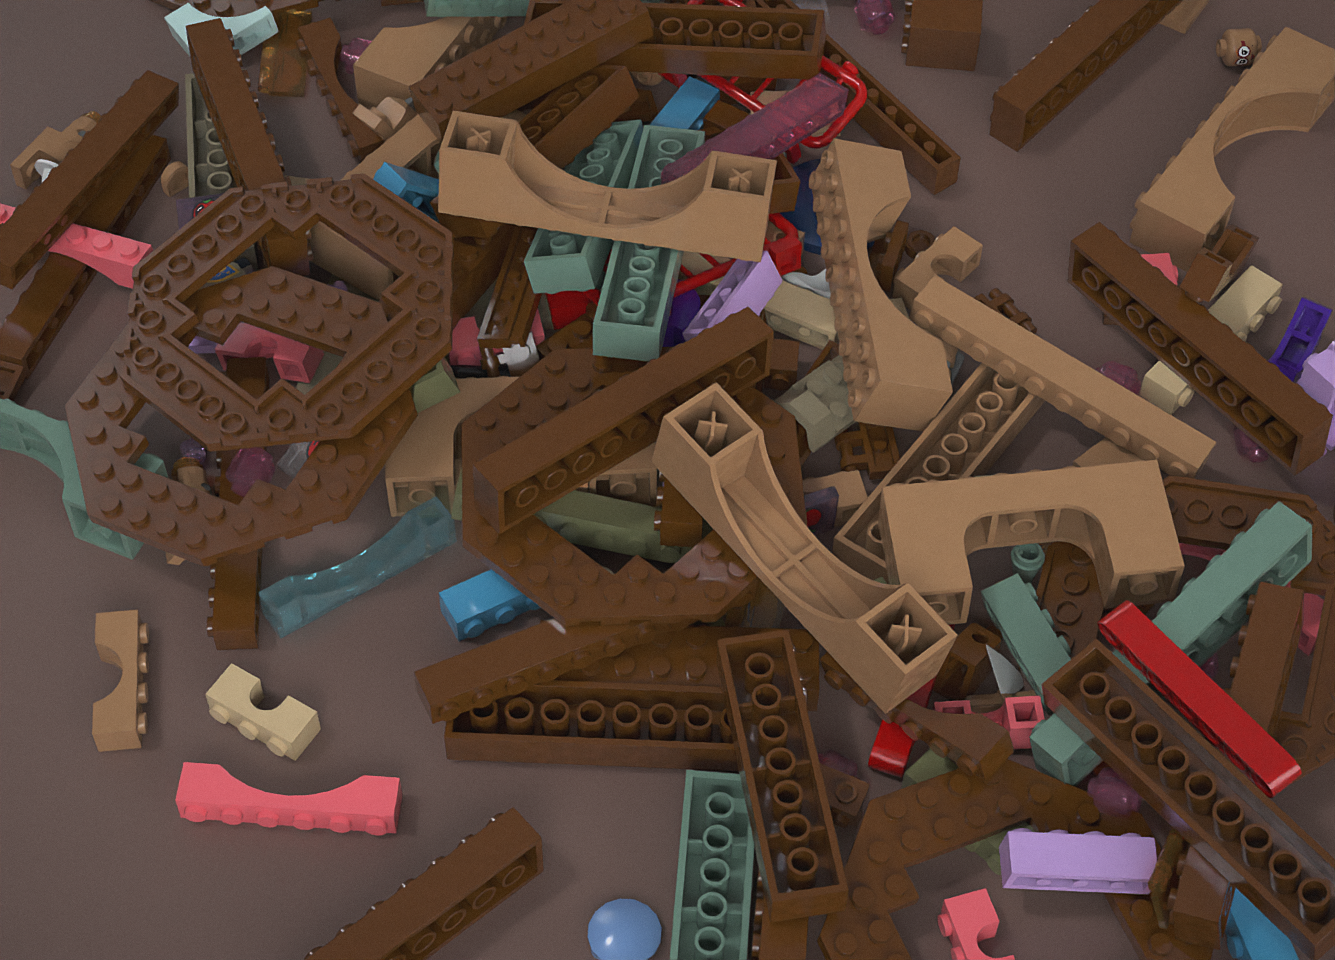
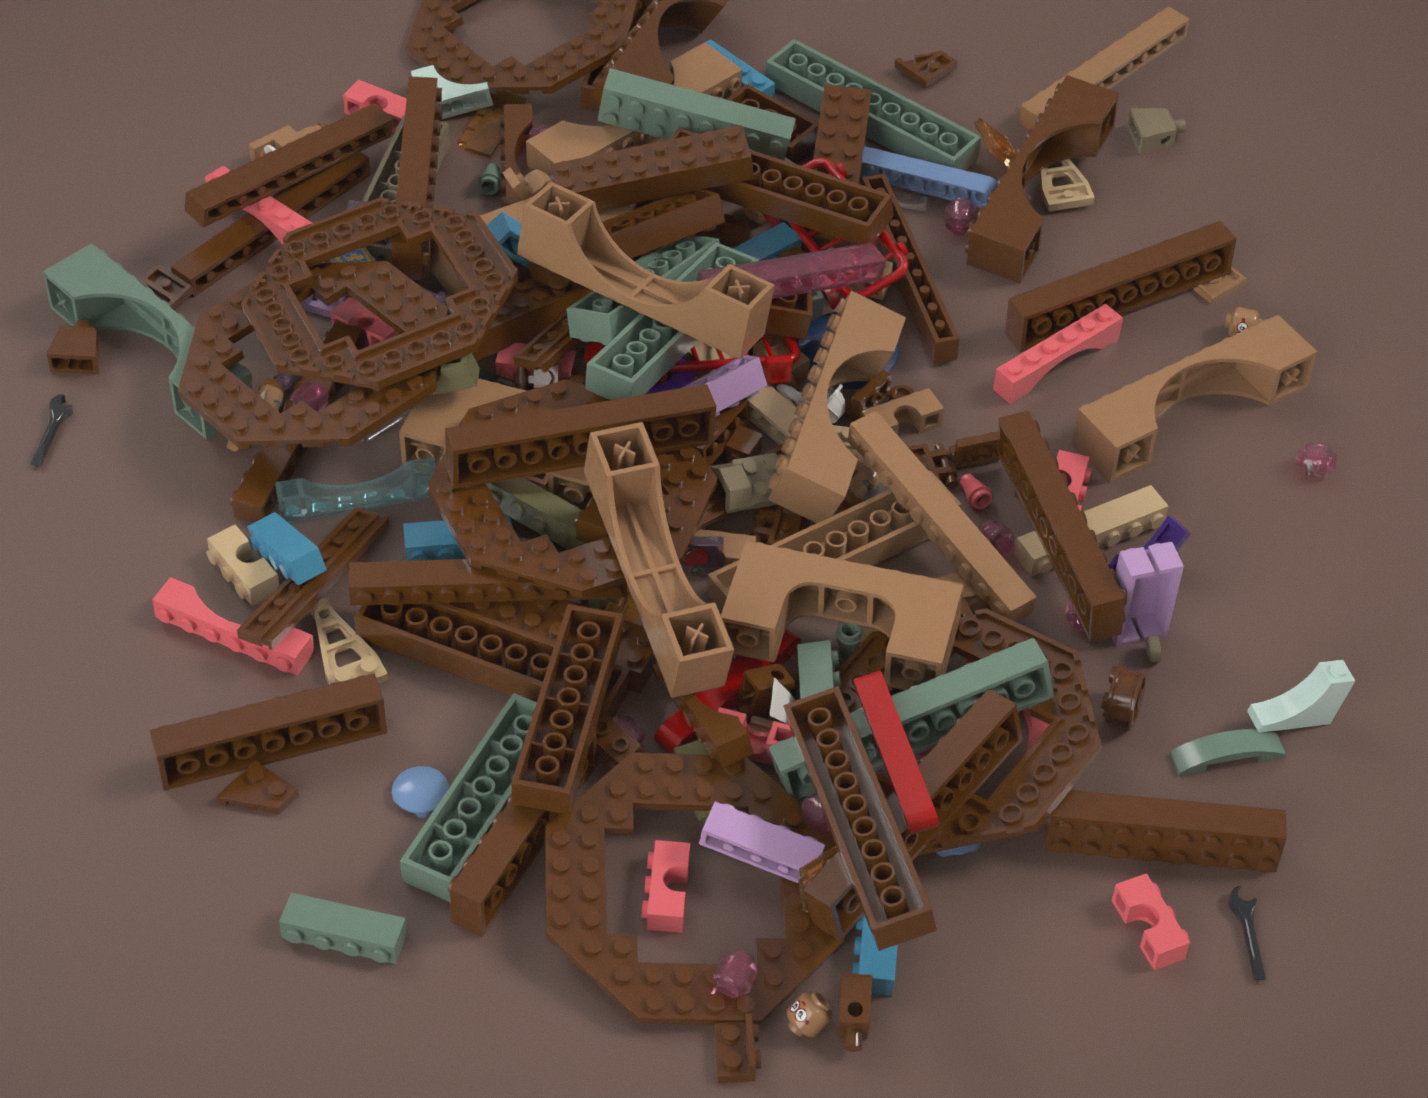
camera: 20 degrees right, 5 degrees down
(119, 716) = (145, 536): medium nougat arch -> none
(123, 65) = (365, 94): none -> coral arch
(174, 178) = (361, 186): medium nougat tile -> none
(314, 675) = (286, 548): none -> dark azure brick
(321, 123) = (490, 180): none -> sand green cone
(363, 704) = (293, 601): none -> reddish brown plate
(469, 810) = (328, 621): none -> tan plate
(1040, 282) = (975, 450): none -> reddish brown bracket
(1049, 161) = (1023, 372): none -> coral arch
(1063, 333) = (977, 494): none -> coral cone
(1217, 267) = (1087, 472): reddish brown arch -> none

